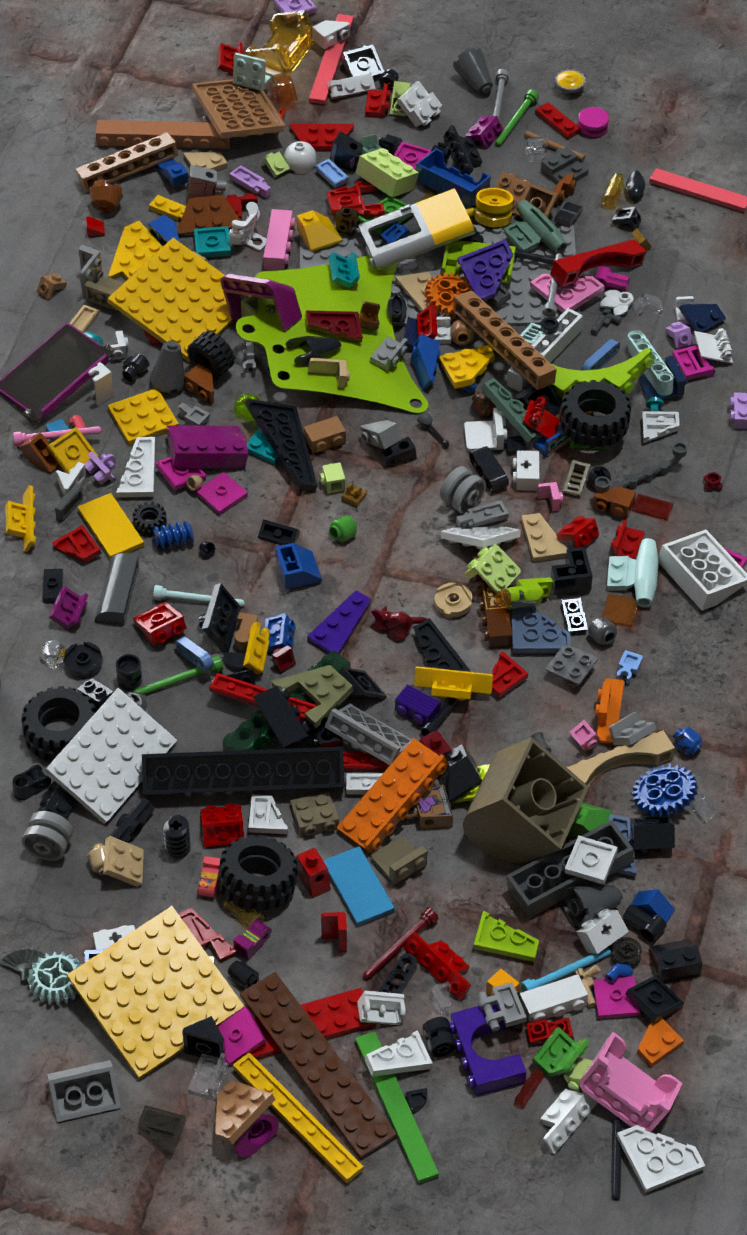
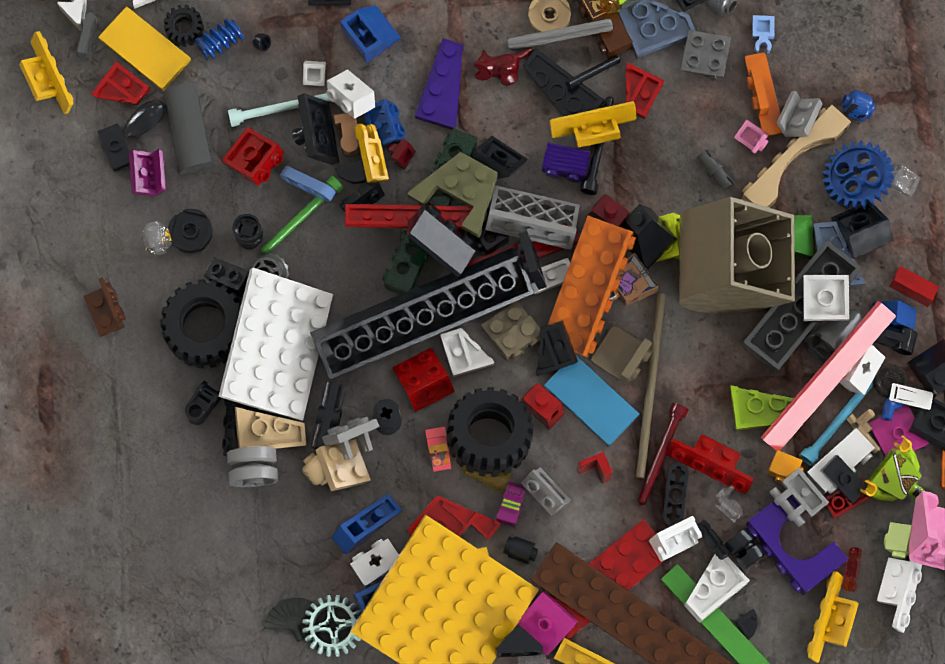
camera: 20 degrees left, 25 degrees up
(83, 820) = (267, 430): none -> tan wing
(86, 572) = (144, 118): none -> black arm
(117, 912) = (365, 523): none -> blue slope
(136, 832) = (355, 427): none -> light grey plate
(239, 583) = (314, 73): none -> white slope
(260, 601) = (350, 94): none -> white brick
(285, 936) = (545, 491): none -> light grey bracket
(343, 833) = (554, 349): none -> black wing
(352, 758) = (532, 263): none -> black plate
(413, 893) = (650, 387): none -> dark tan piece
(414, 1021) = (713, 540): none -> black axle
(454, 612) = (560, 34): none -> light grey axle
(469, 648) = (592, 72): none -> black bar
(493, 1118) = (834, 620): none -> yellow bracket
(549, 1007) = (843, 478): none -> black plate
(559, 1053) = (874, 525): bright green bracket -> none
(568, 922) = (828, 376): none -> tile
(597, 1021) = (895, 475): none -> lime torso
(638, 968) = (911, 396): none -> white sticker
(678, 890) = (914, 286): none -> red panel

